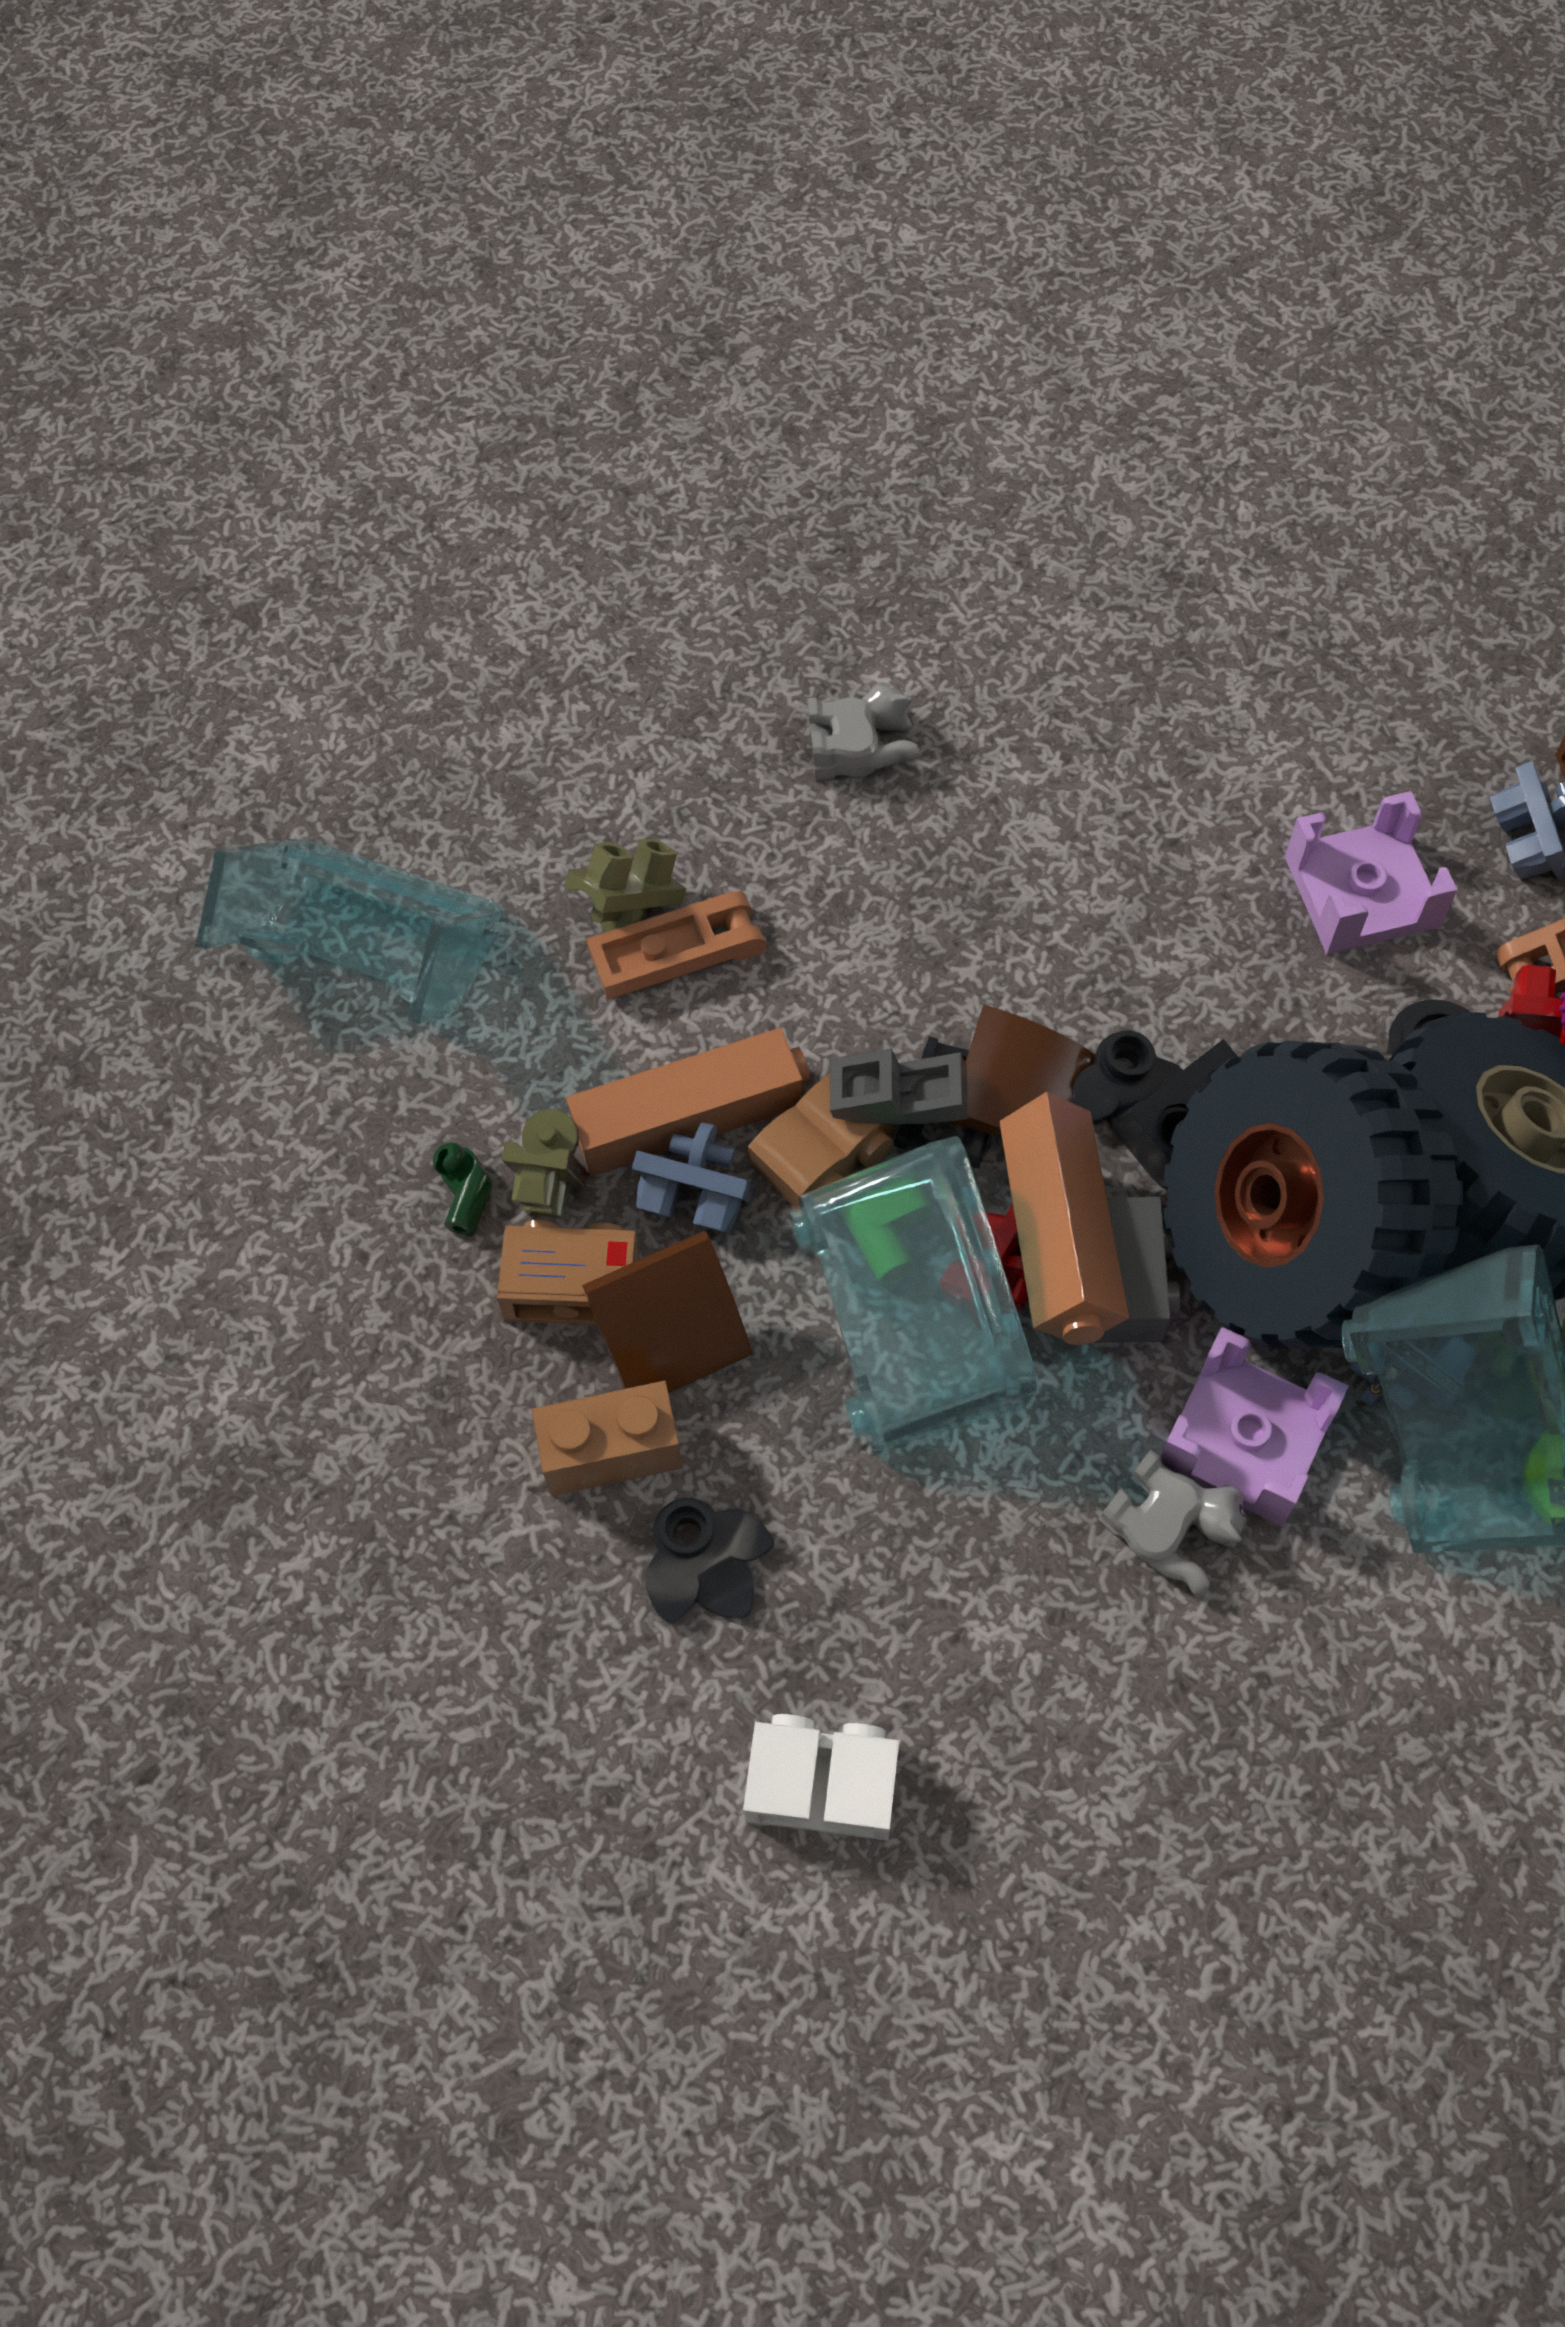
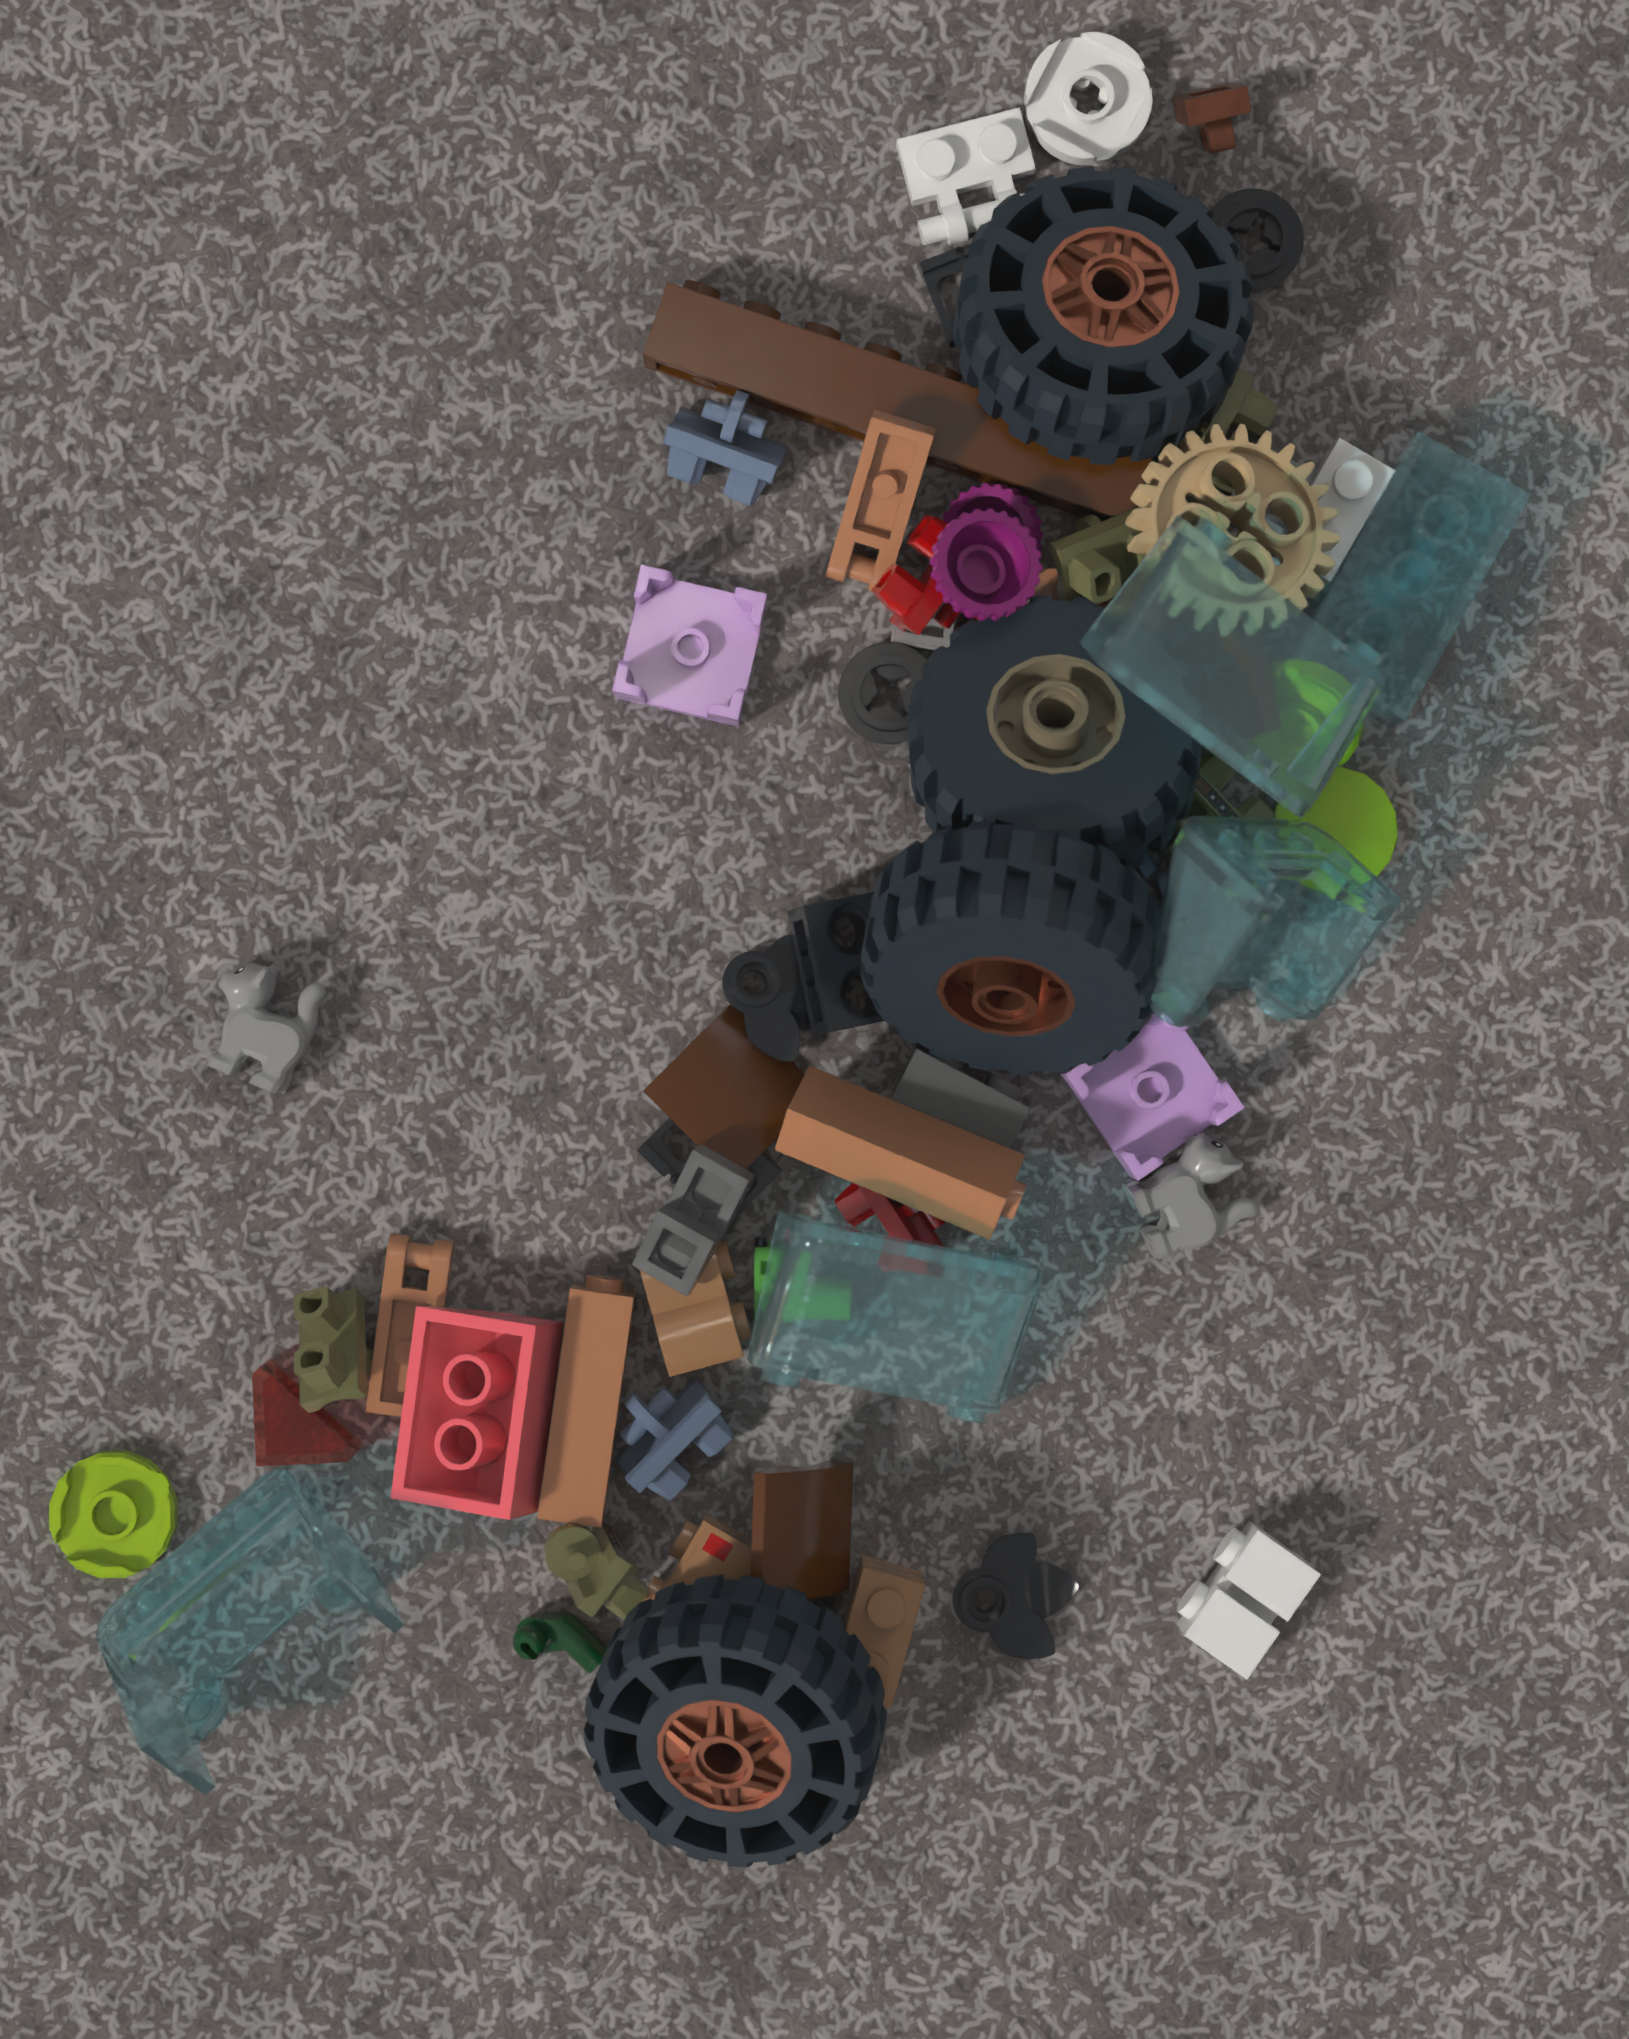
camera: 65 degrees left, 25 degrees up
(408, 830) = (130, 1497): none -> lime tile
(466, 1326) = (736, 1721): none -> black wheel
(538, 894) = (287, 1431): none -> clear red slope
(633, 1009) = (476, 1411): none -> coral slope

